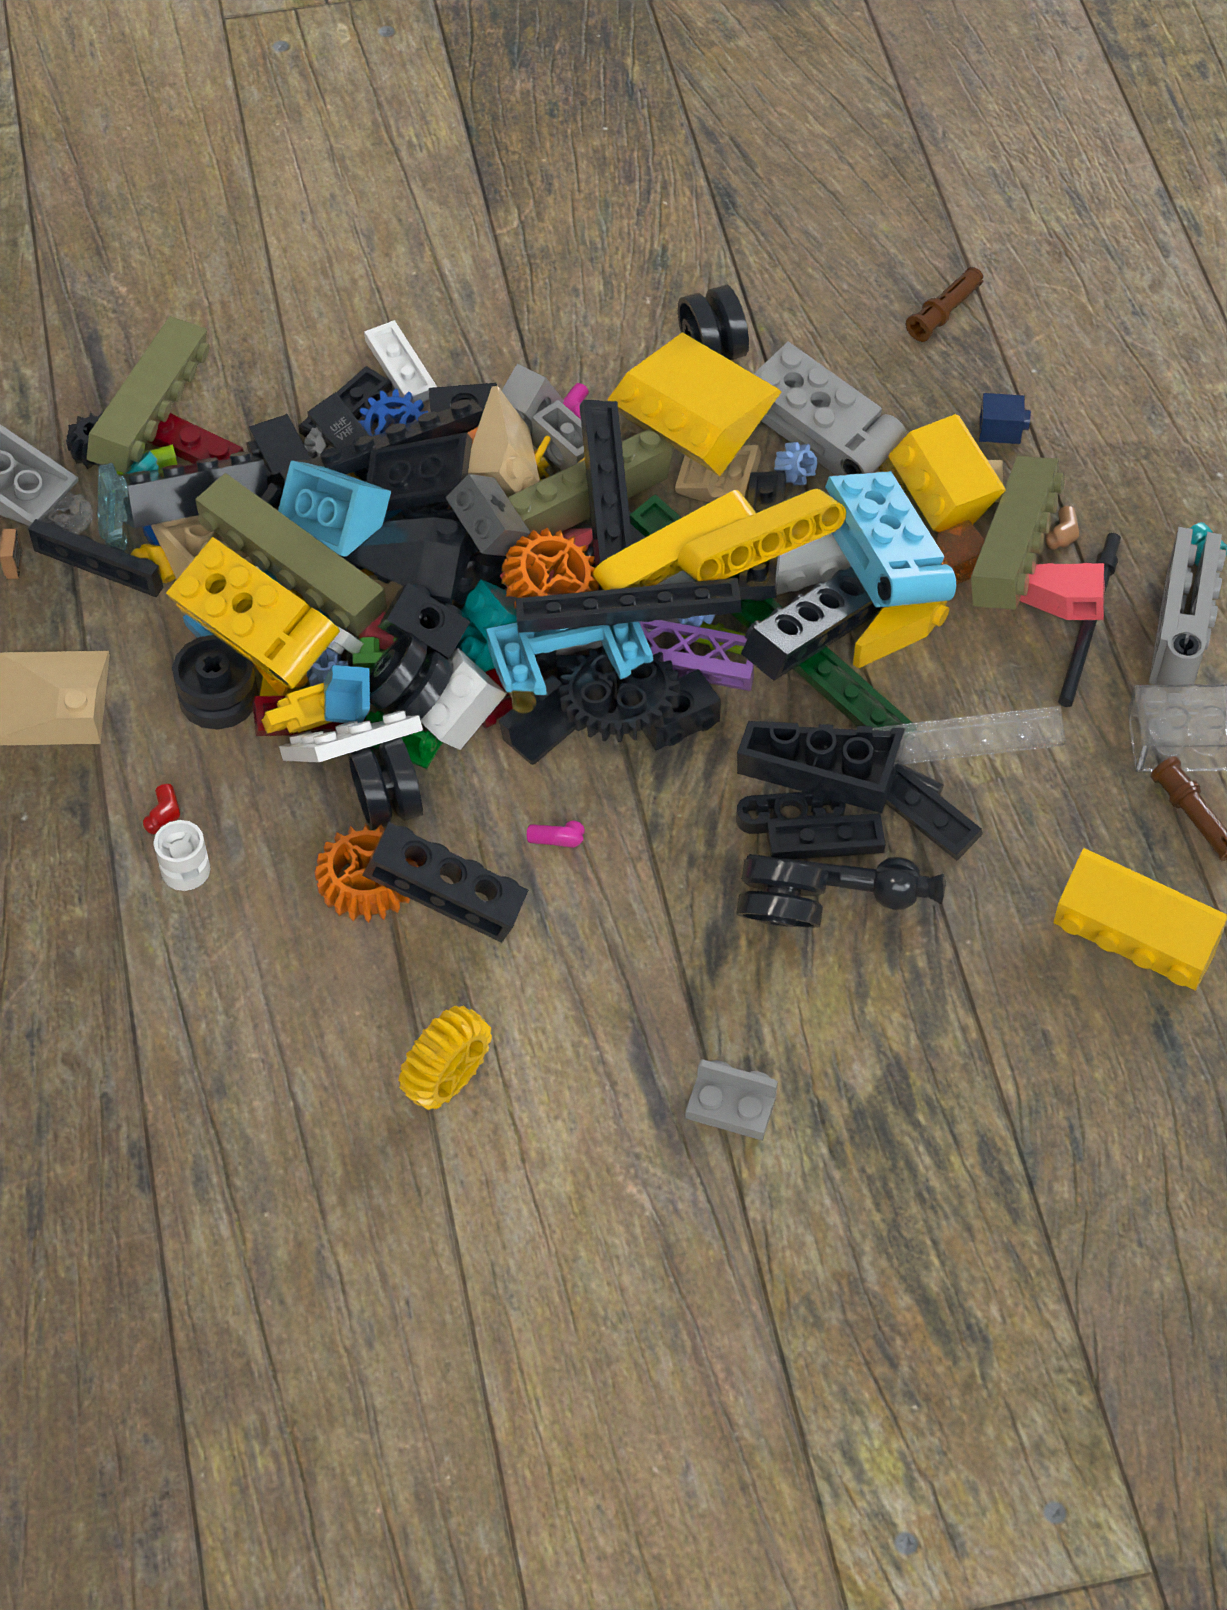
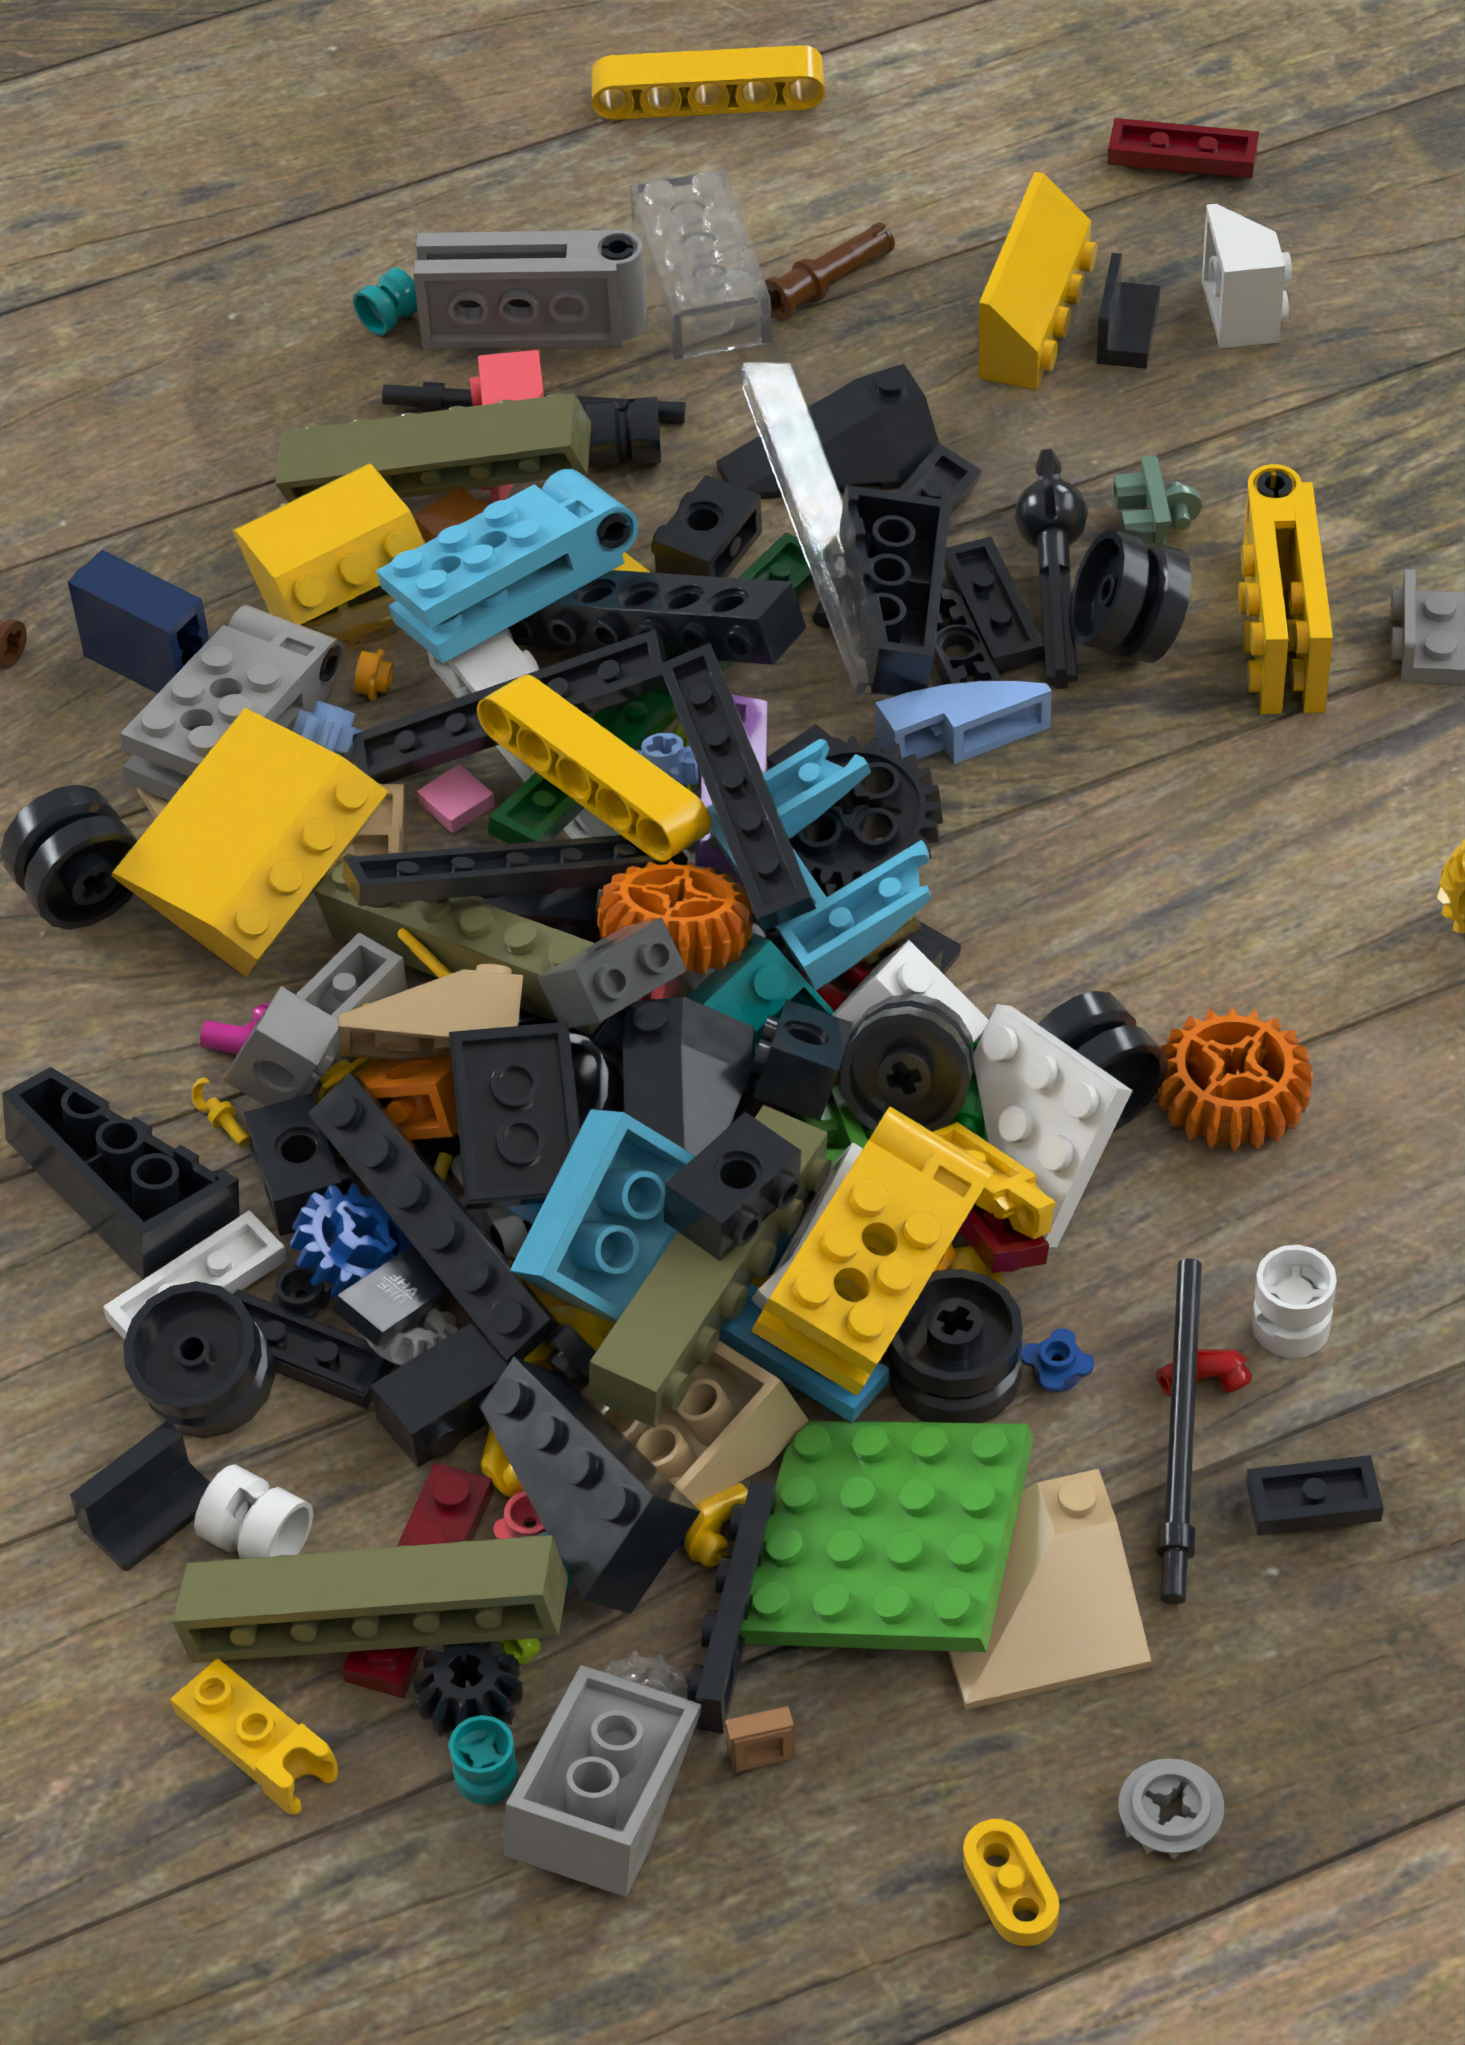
camera: 100 degrees left, 5 degrees down
(50, 438) = (476, 1747): none -> teal wheel
(54, 839) = (1314, 1495): none -> black plate
(58, 768) = (1176, 1534): none -> black bar
(101, 627) = (889, 1535): none -> bright green plate
(105, 359) = (254, 1733): none -> yellow plate
(110, 507) = (667, 1555): clear light blue hinge -> none
(198, 747) = (1057, 1375): none -> blue plate
(231, 364) = (251, 1517): none -> white wheel
(271, 331) = (140, 1498): none -> black panel
(308, 530) = (733, 1186): none -> black brick
(334, 347) = (199, 1359): none -> black wheel
(346, 694) = (966, 1115): dark azure panel -> none
(456, 900) = (1236, 956): black brick -> none
(479, 329) = (115, 1174): none -> black wedge
(566, 836) = (1090, 887): dark pink arm -> none
(717, 790) = (963, 717): none -> light blue slope
(762, 536) = (540, 648): yellow beam -> none
(773, 997) = (1278, 560): none -> yellow hinge
(895, 955) = (1160, 507): none -> sand green hips
(902, 371) = (135, 620): none -> dark blue brick
(927, 685) = (708, 530): none -> black brick
(1003, 418) = (186, 526): dark blue brick -> none
(1009, 799) = (867, 429): none -> black wedge
(1037, 653) = (624, 432): none -> black wheel
(1110, 985) = (1126, 319): none -> black panel
(1116, 1053) = (1244, 279): none -> white slope

